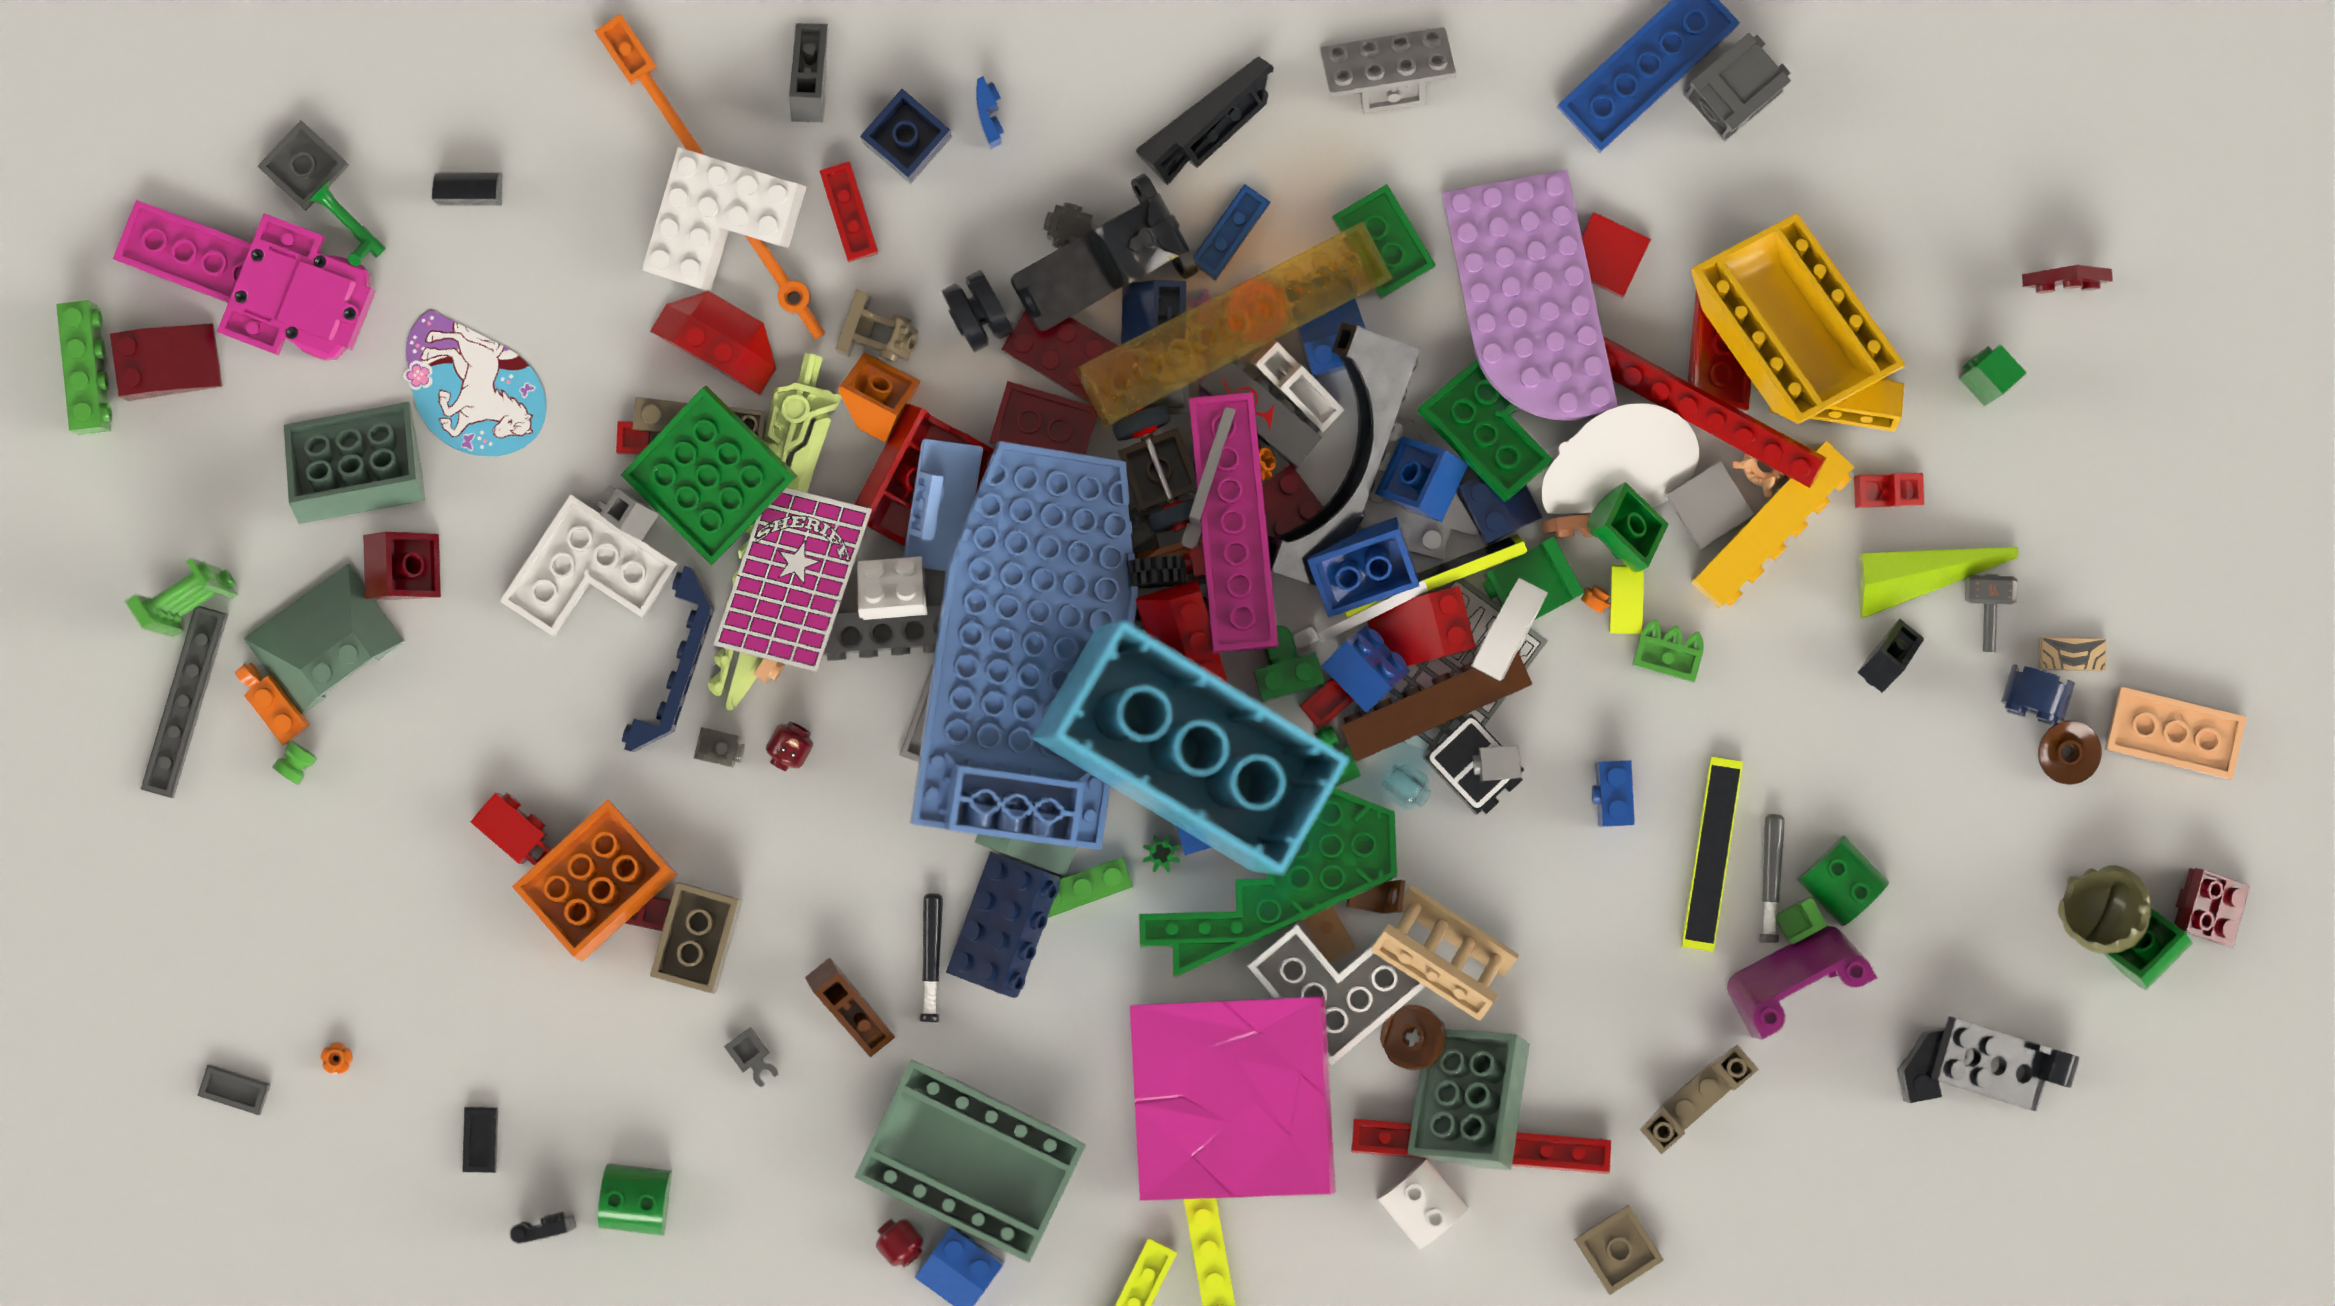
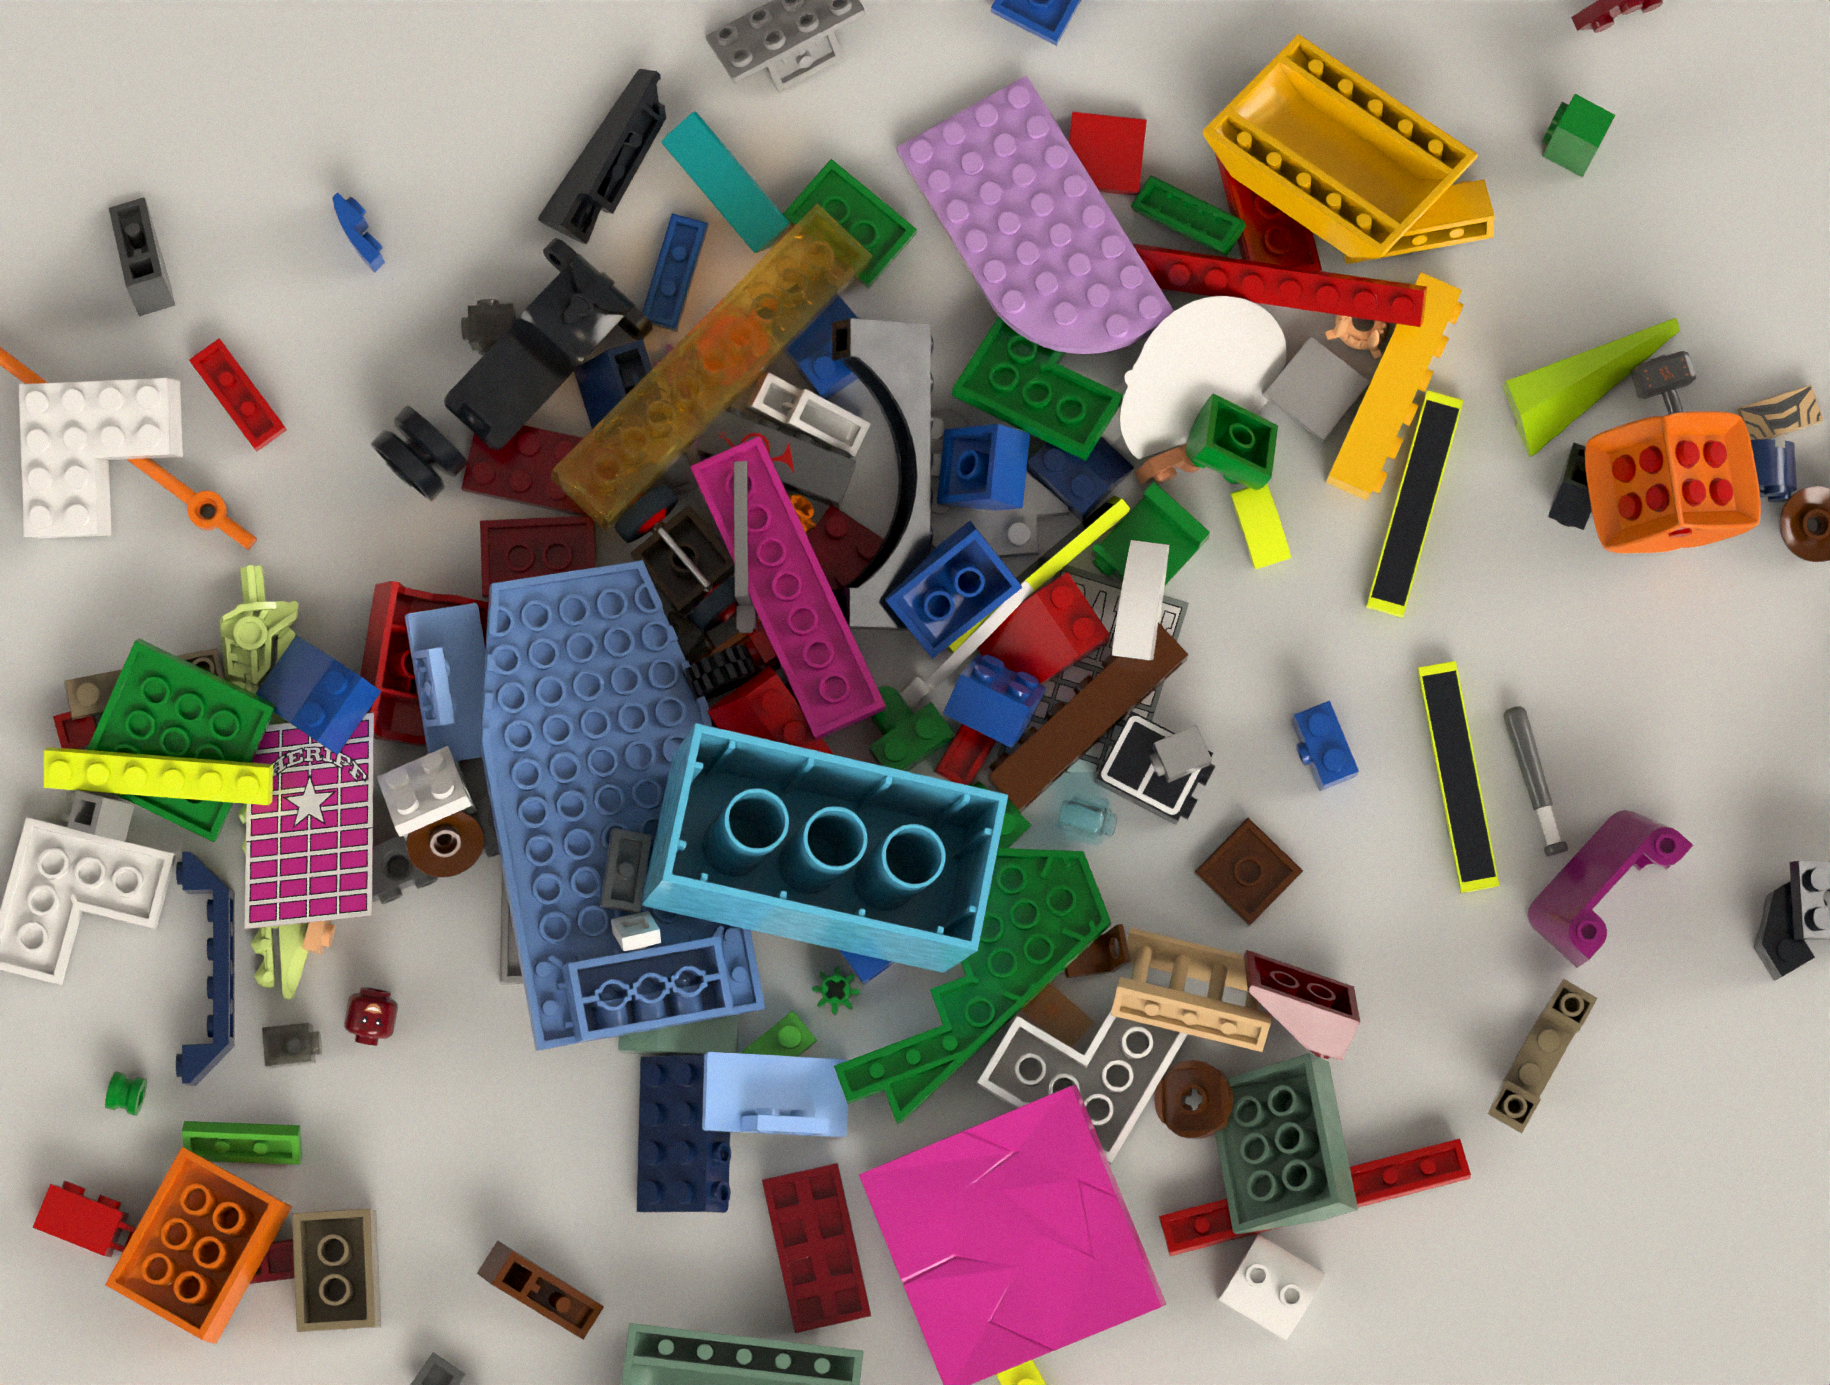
camera: 15 degrees left, 5 degrees down
(577, 740) = (126, 1093): none -> green wheel
(656, 811) = (244, 1142): none -> bright green plate
(685, 499) = (158, 776): none -> neon yellow plate
(719, 338) = (138, 584): red wedge -> none
(832, 478) = (318, 694): none -> blue slope
(860, 325) = (292, 516): dark tan tile -> none
(877, 395) = (337, 587): orange slope -> none
(894, 641) = (448, 855): none -> reddish brown dish
(906, 136) = (273, 288): dark blue brick -> none
(931, 953) = (611, 1191): black piece -> none
(1020, 757) = (636, 931): none -> white plate
(1028, 706) = (625, 870): none -> dark grey plate
(1077, 1050) = (816, 1248): none -> dark red plate
(1084, 920) = (773, 1095): none -> light blue bracket
(1295, 174) = (725, 183): none -> teal slope
(1519, 871) = (1248, 871): none -> reddish brown tile
(1528, 995) = (1309, 1005): none -> dark red slope
(1596, 598) = (1226, 536): orange plate -> none
(1618, 1249) = (1513, 1260): dark tan plate -> none
(1657, 330) = (1188, 215): none -> green plate
(1669, 655) = (1330, 570): bright green plate -> none
(1755, 624) = (1414, 504): none -> black tile
(1800, 920) = (1584, 816): bright green panel -> none
(1843, 881) = (1616, 756): green brick -> none
(1889, 490) = (1510, 305): red slope -> none
(1965, 683) = (1672, 482): none -> orange piece

